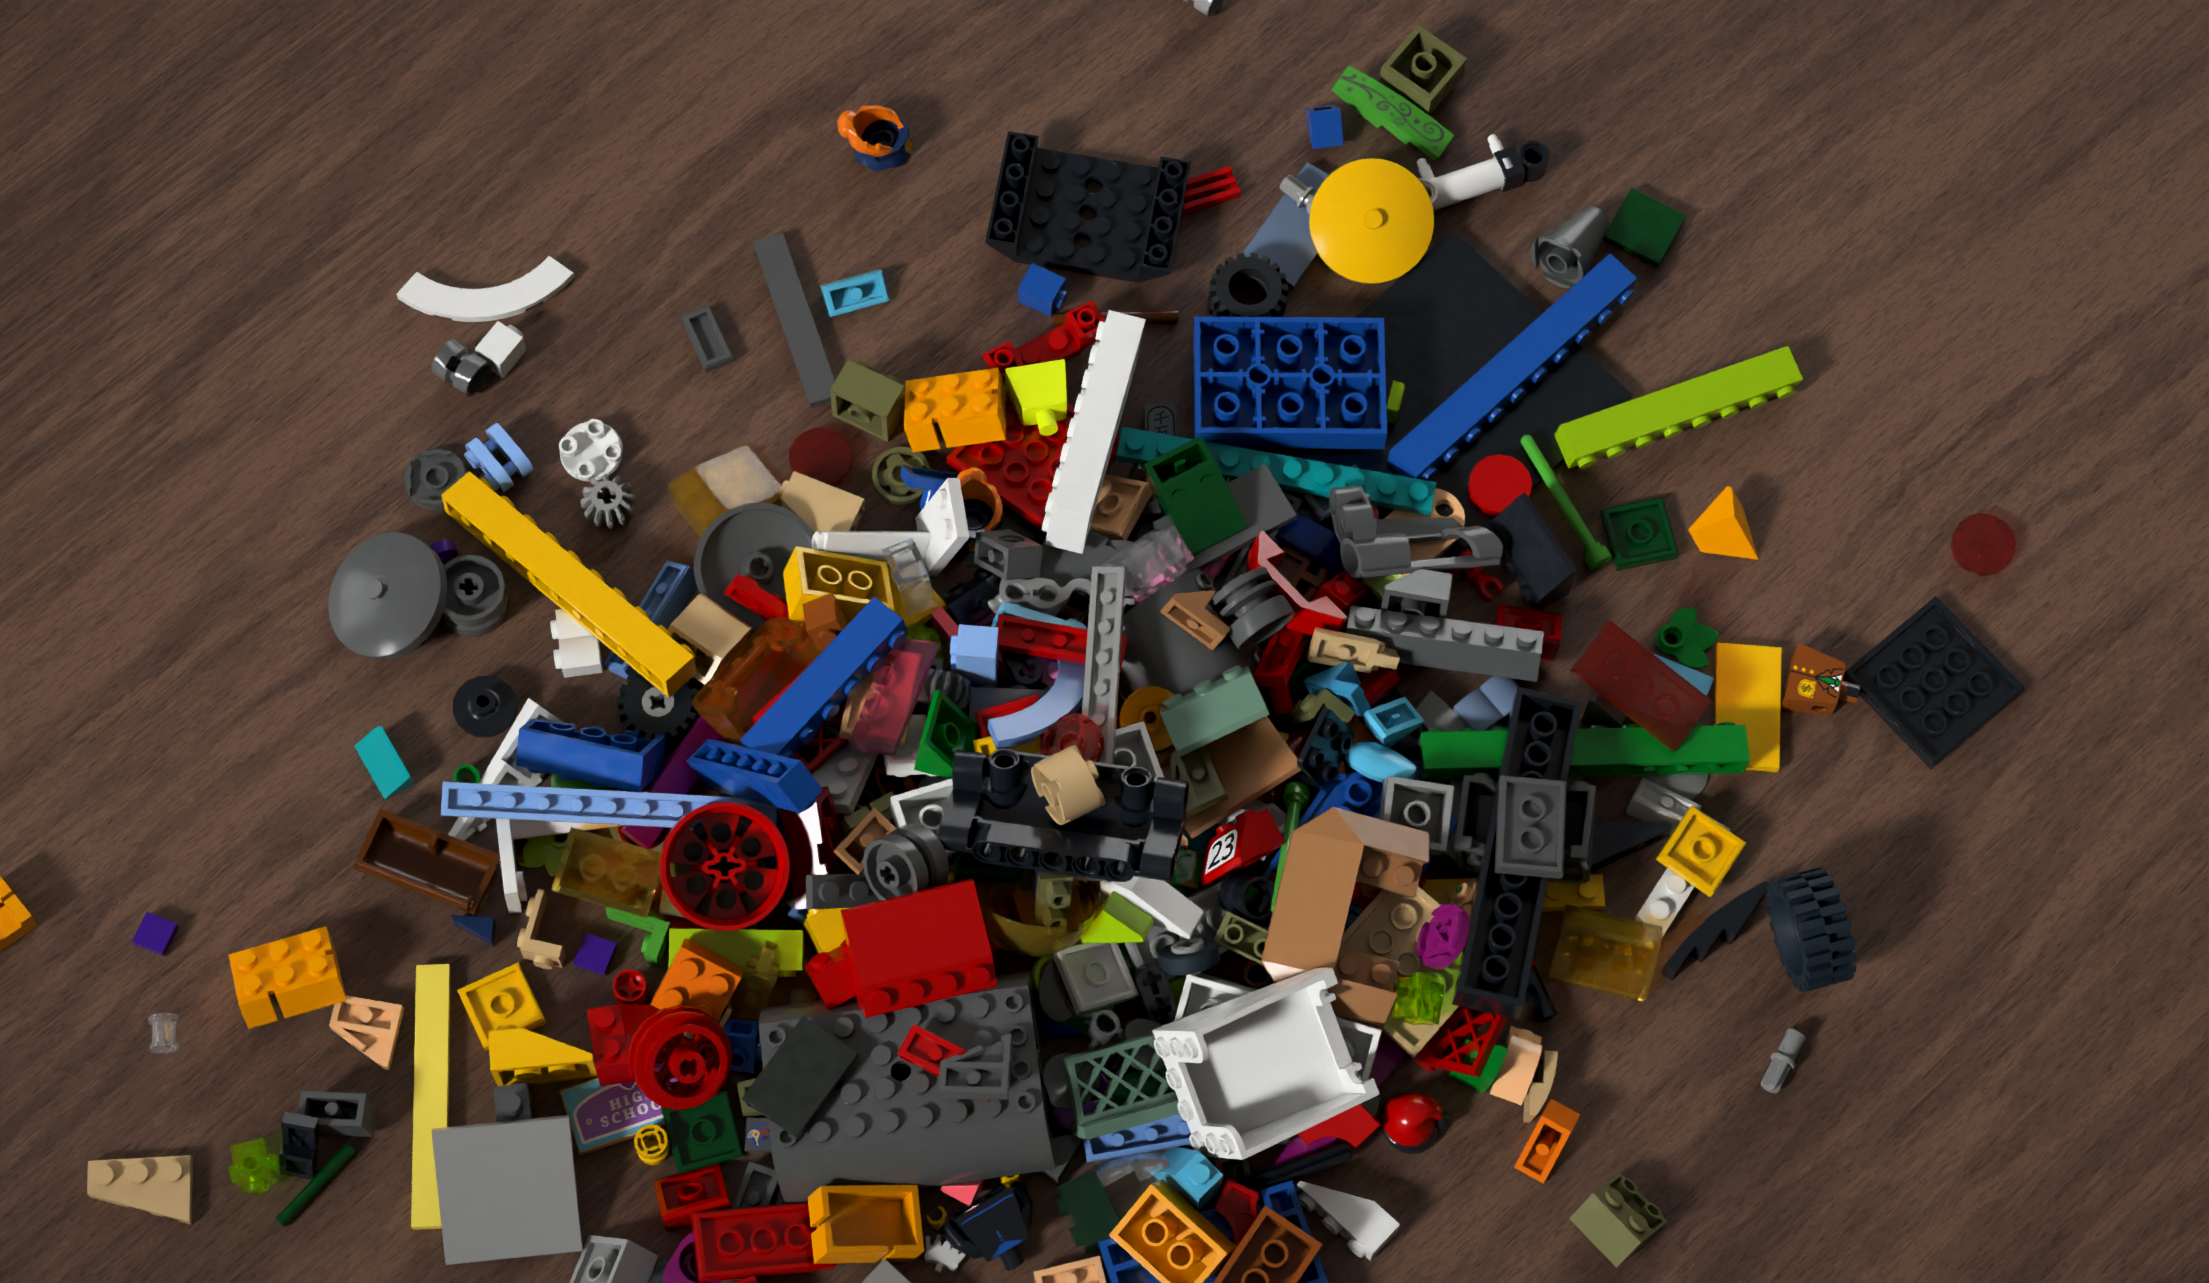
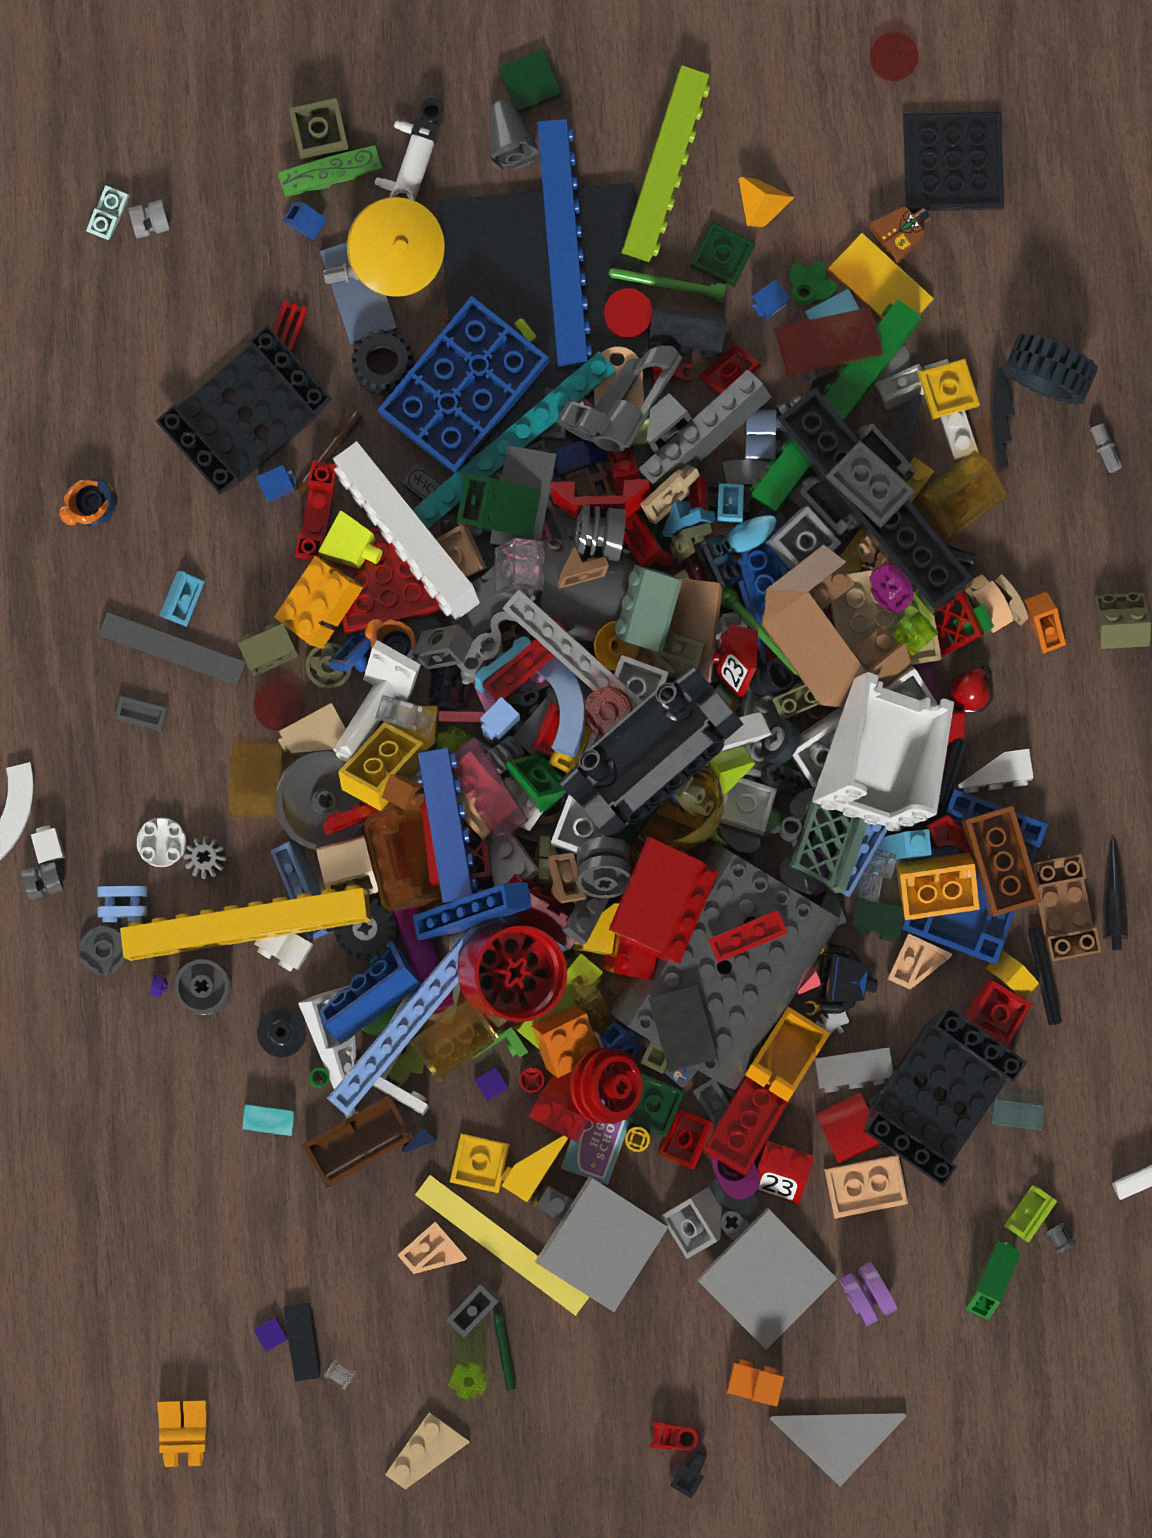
camera: 45 degrees left, 15 degrees up
(170, 971) = (301, 1342): none -> black tile
(296, 969) = (363, 1271): light orange piece -> none
(299, 1145) = (476, 1345): black slope -> none
(387, 596) = (164, 1038): dark grey dish -> none
(541, 953) = (469, 1115): tan bracket -> none
(978, 1072) = (770, 926): dark grey wing -> none
(1067, 785) = (640, 737): tan brick -> none
(1634, 610) = (770, 300): none -> blue brick

